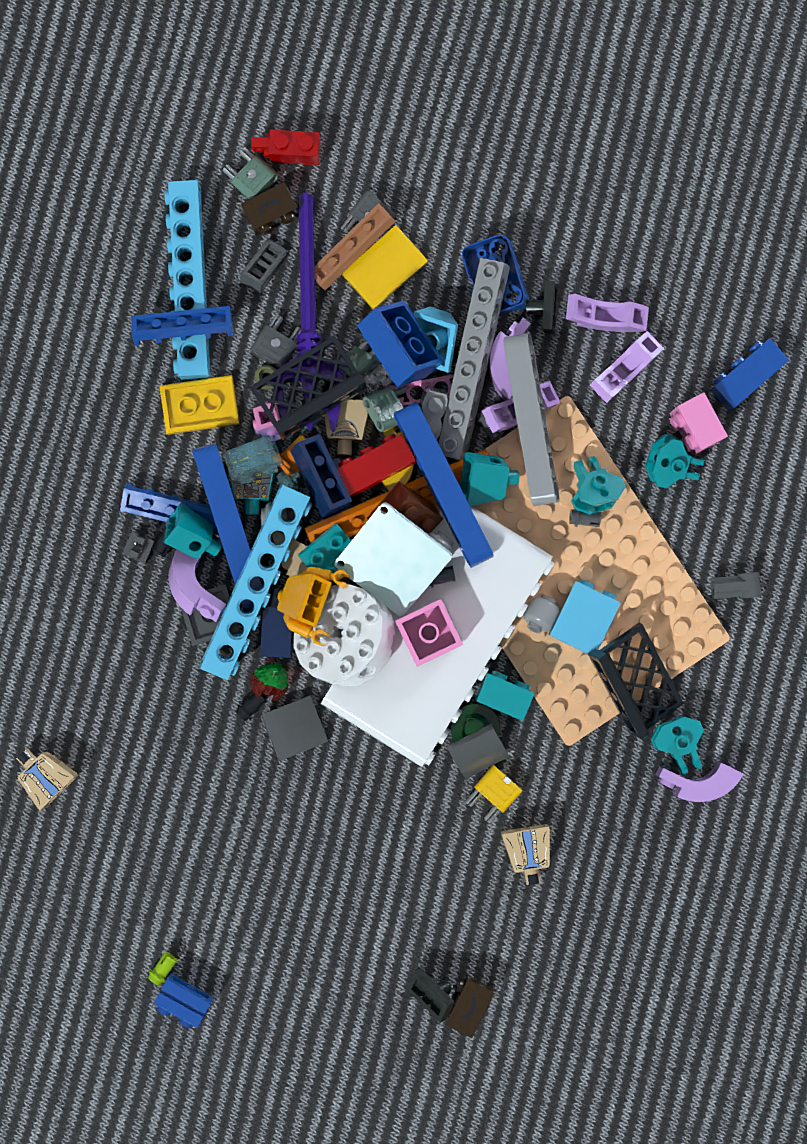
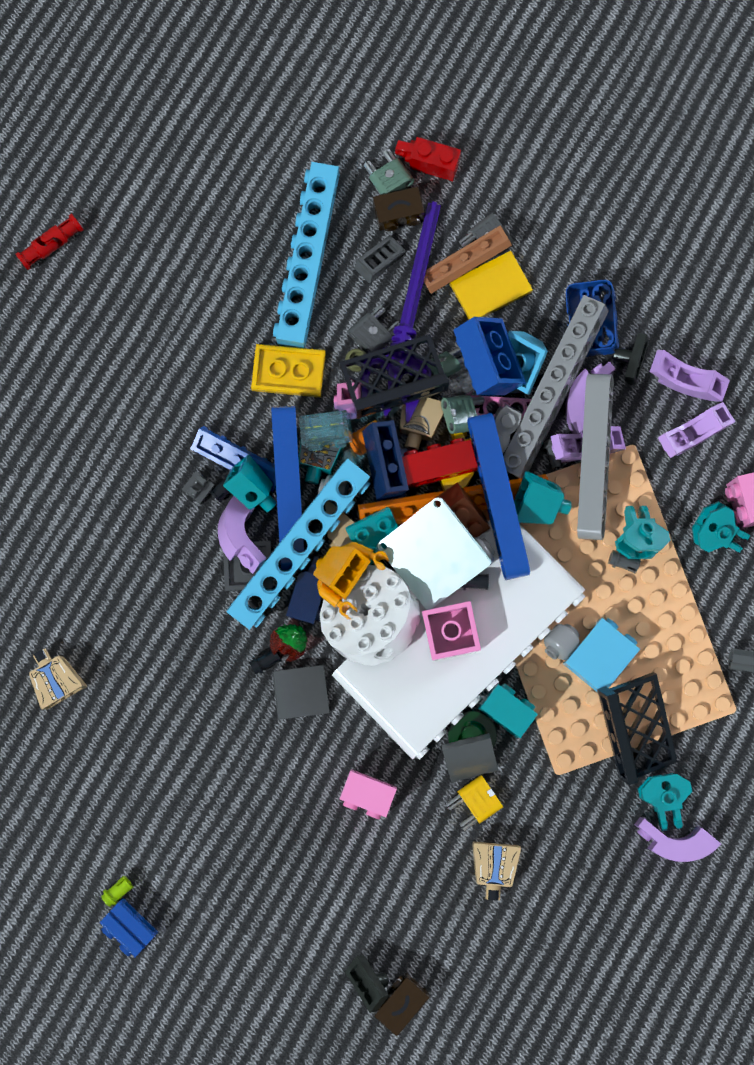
camera: 20 degrees right, 5 degrees down
(181, 324) = (291, 291): blue hinge -> none
(386, 812) = (368, 794): none -> bright pink brick

